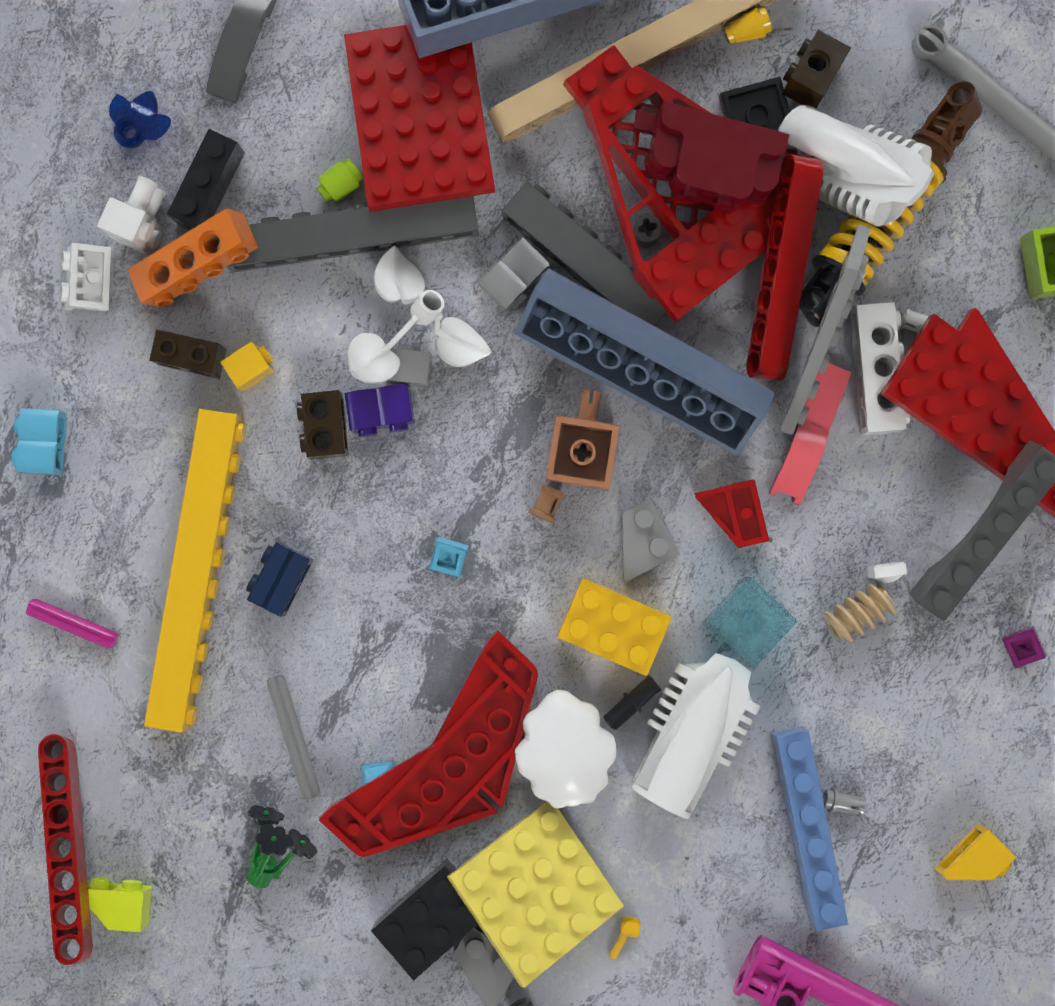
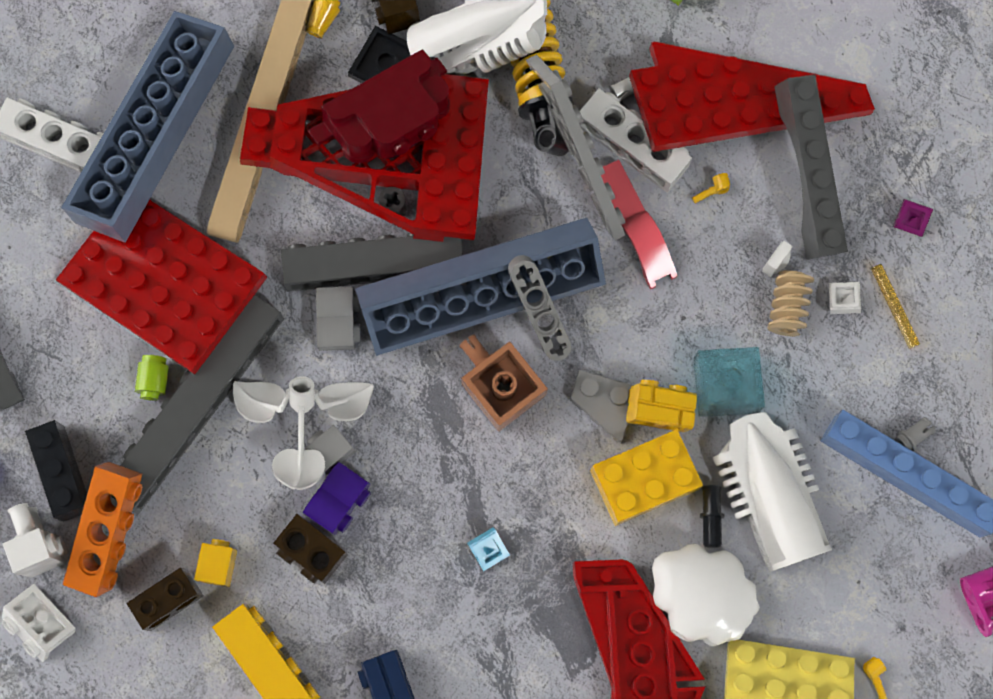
camera: 55 degrees left, 10 degrees down
(547, 503) = (515, 444): medium nougat bush -> none
(667, 424) = (538, 309): none -> light grey beam
(680, 588) = (661, 407): none -> yellow brick
(737, 512) = (643, 321): red wing -> none
(784, 267) = (508, 136): red beam -> none
(905, 651) = (844, 298): none -> white tile
(906, 472) = (721, 186): none -> yellow hand
(936, 696) = (895, 306): none -> clear yellow bar

